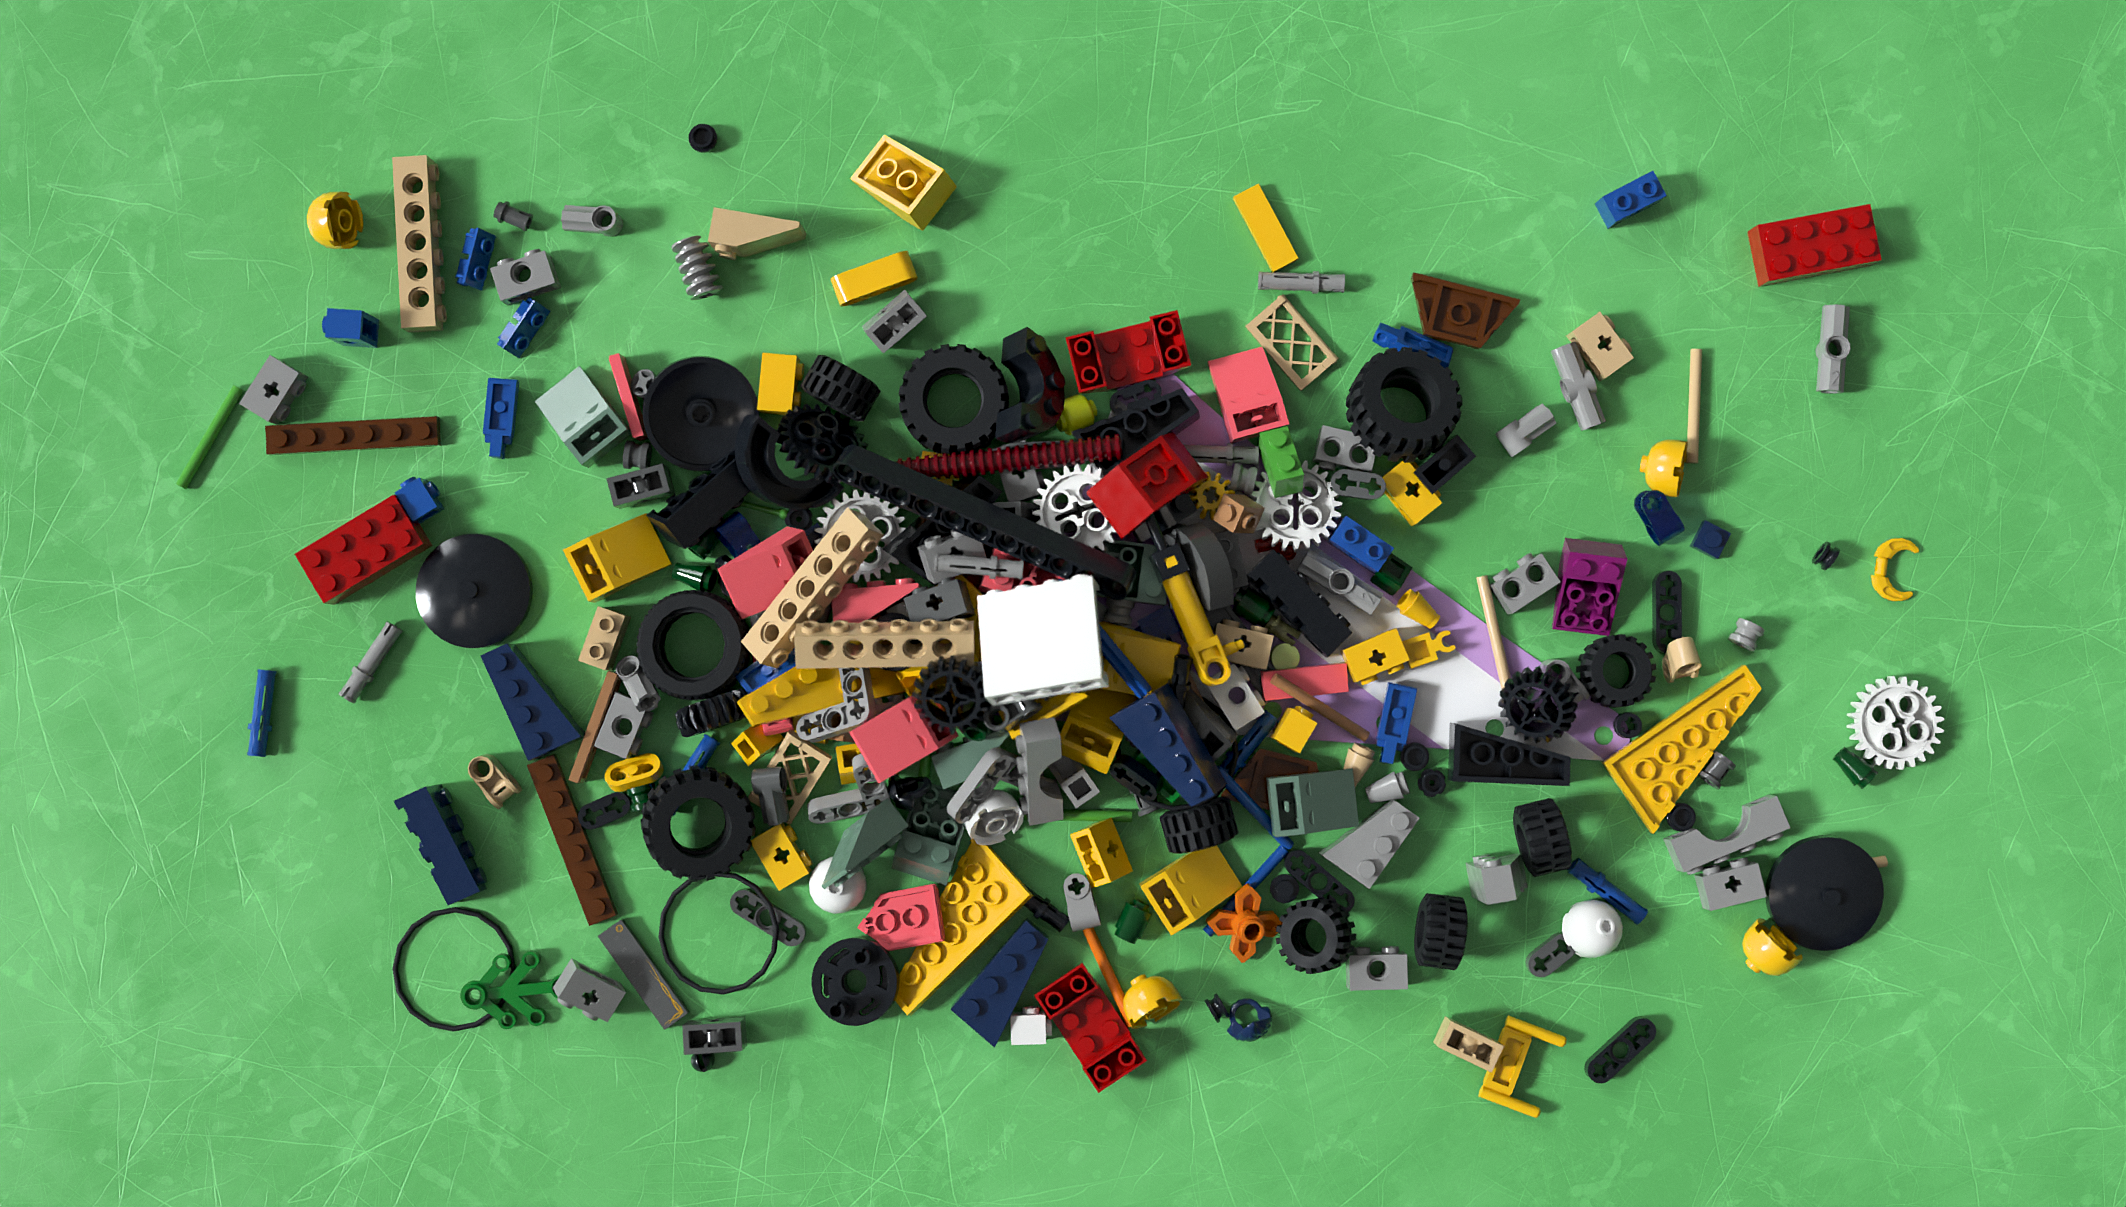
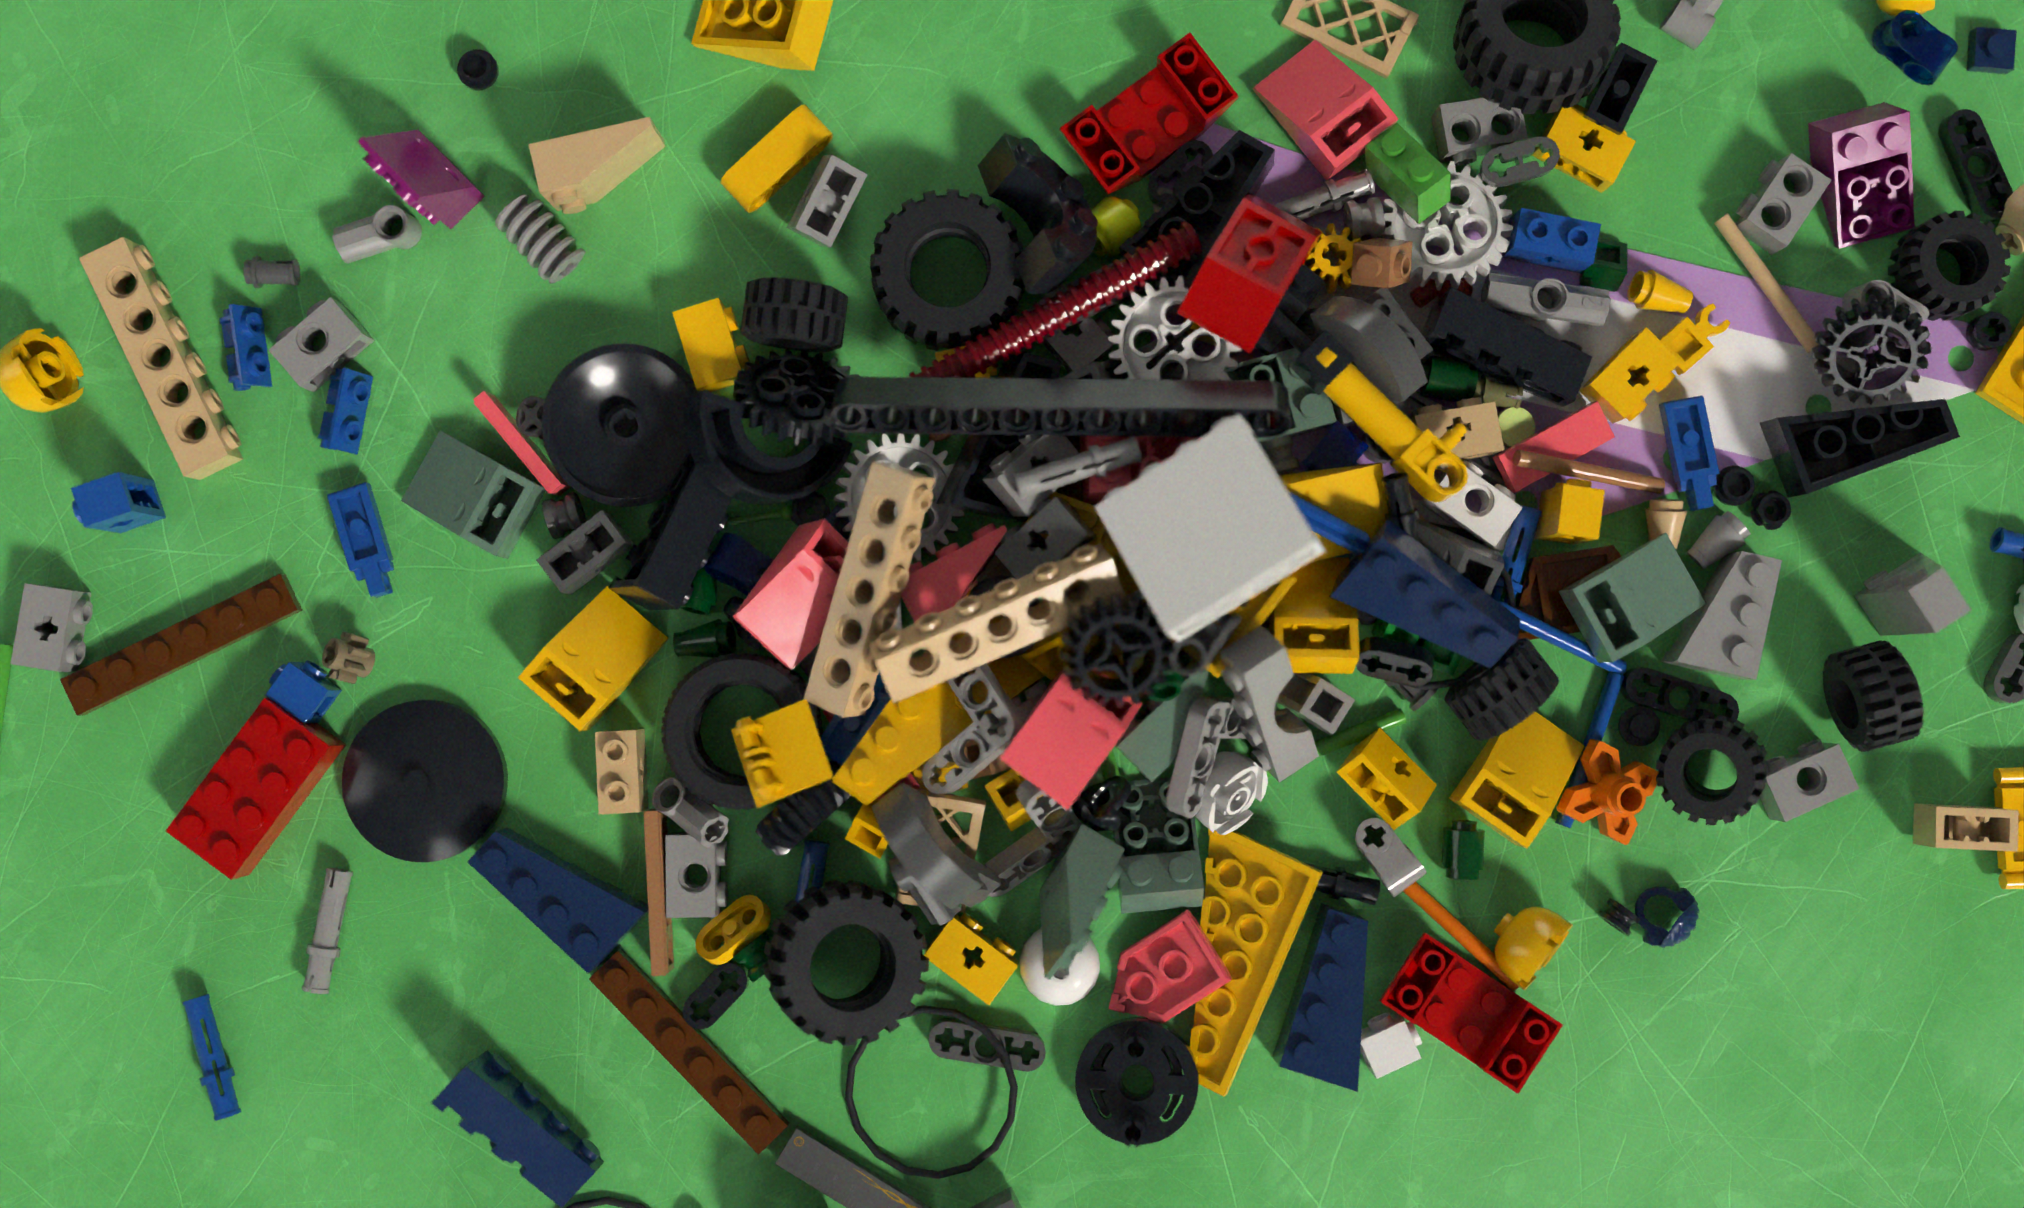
camera: 30 degrees left, 0 degrees up
(458, 490) = (348, 657): none -> dark tan gear
(494, 781) = (556, 1017): tan piece -> none
(637, 195) = (421, 175): none -> magenta slope
(712, 670) = (781, 753): none -> yellow hinge
(779, 774) = (928, 852): none -> dark grey arch
(1542, 837) = (1951, 518): black tyre -> none

